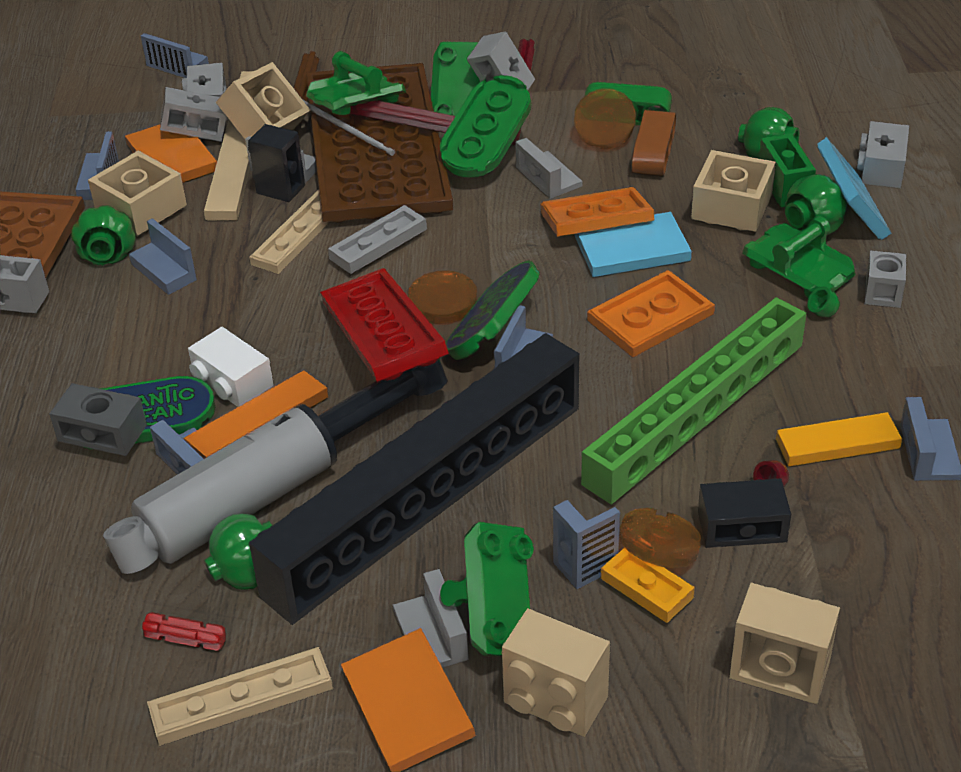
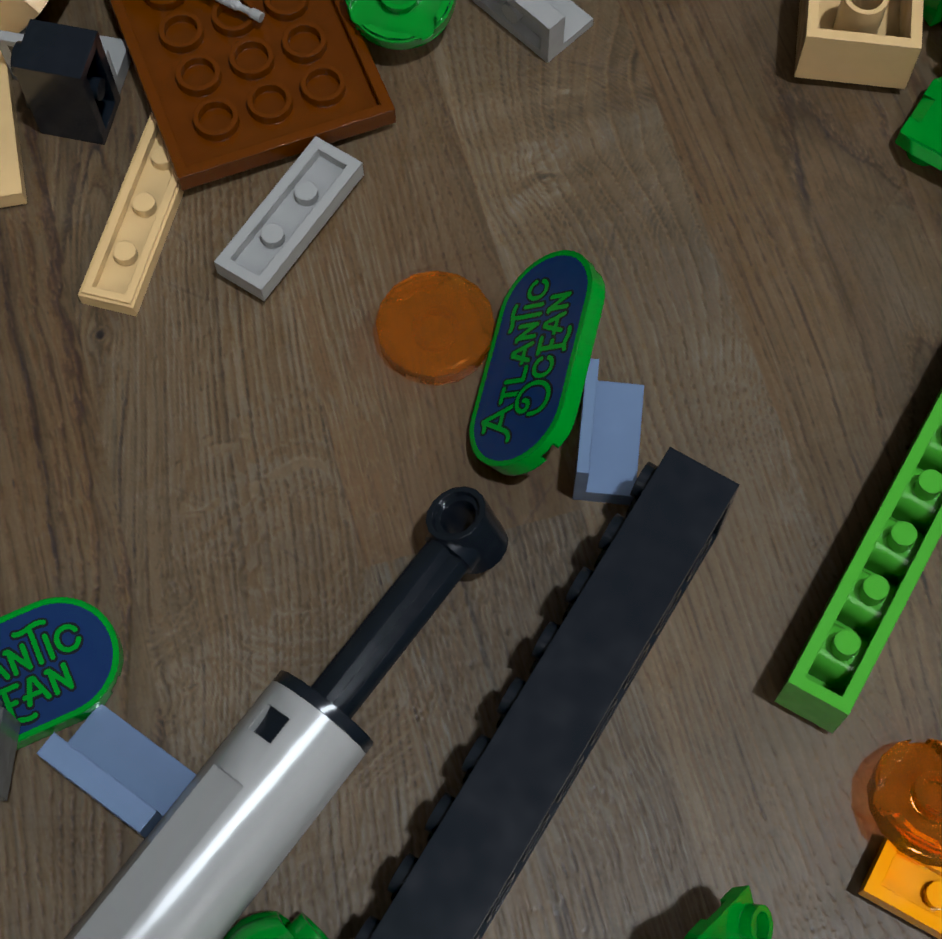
camera: 15 degrees left, 25 degrees up
(230, 367) = (124, 566): white brick -> none
(237, 423) = (202, 668): orange tile -> none
(383, 325) = (376, 452): red plate -> none
(583, 545) = (823, 872): sand blue panel -> none
(596, 211) = (641, 93): orange tile -> none
(634, 246) = (714, 151): medium azure tile -> none
(650, 313) = (783, 301): orange tile -> none

